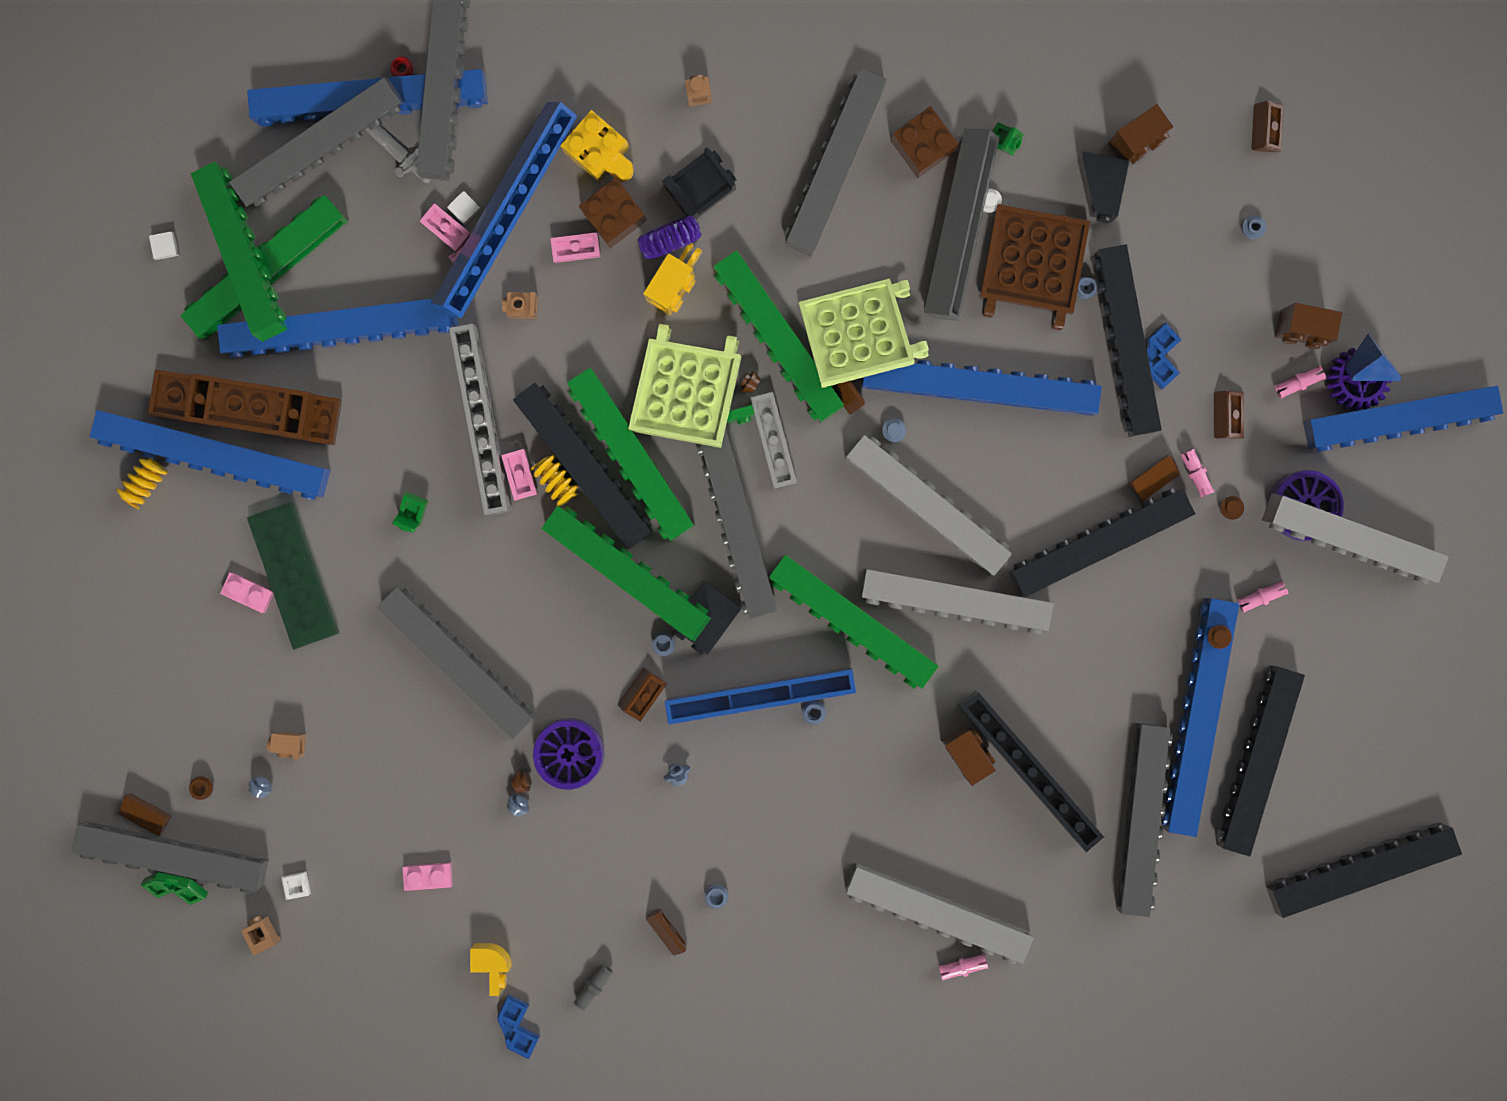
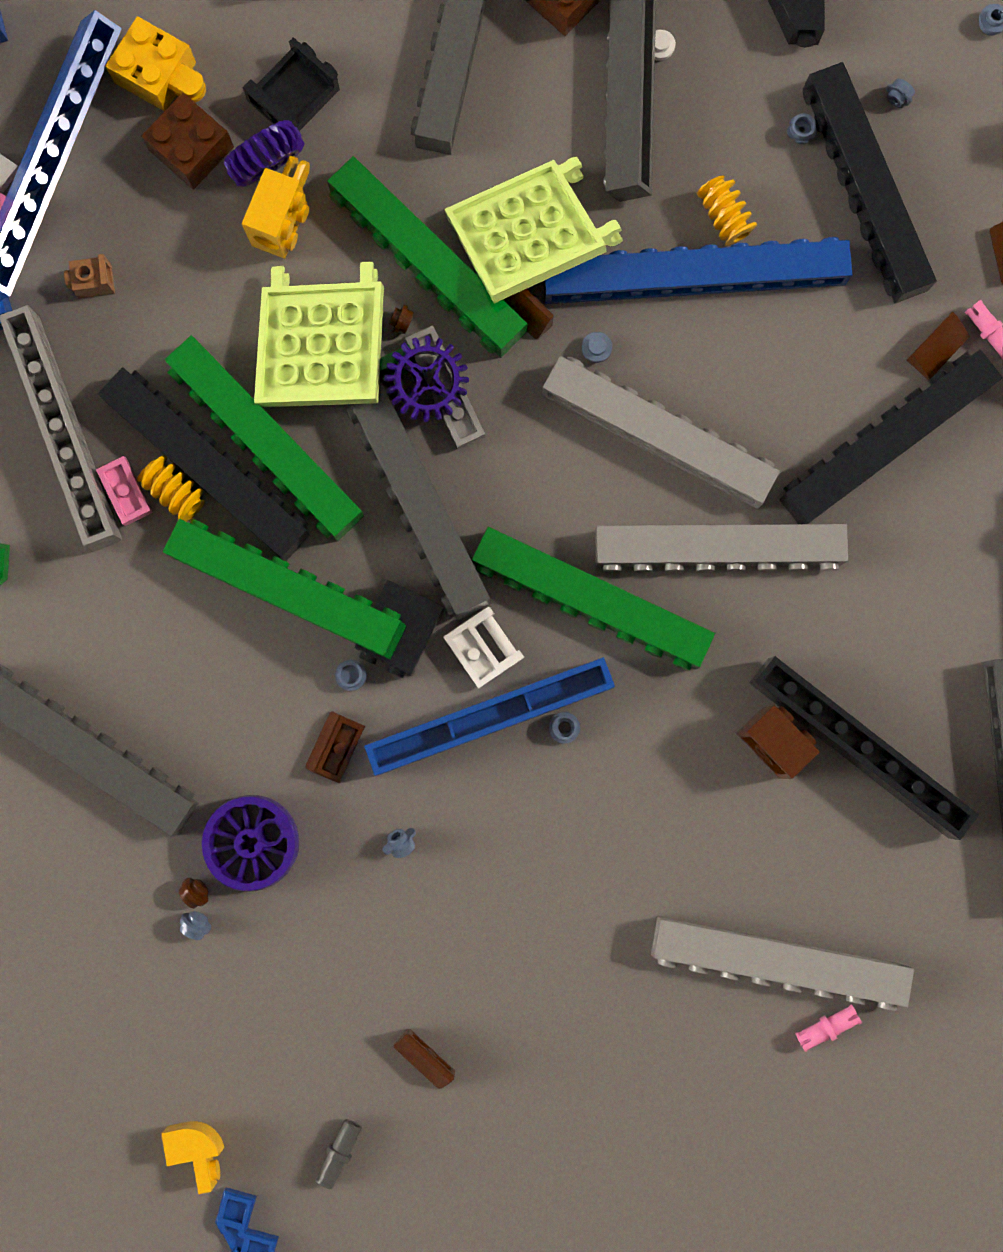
camera: 15 degrees left, 5 degrees down
(427, 876) = (89, 1046): bright pink plate -> none
(575, 247) = (148, 193): bright pink plate -> none
(716, 896) = (482, 997): sand blue plate -> none
(758, 645) = (474, 652): none -> white plate
(768, 428) = (442, 357): none -> dark purple gear
(1014, 343) = (725, 210): none -> yellow piece
(1034, 261) = (731, 108): reddish brown plate -> none
(1157, 347) = (909, 181): blue tile -> none
(1167, 273) = (900, 93): none -> sand blue plate

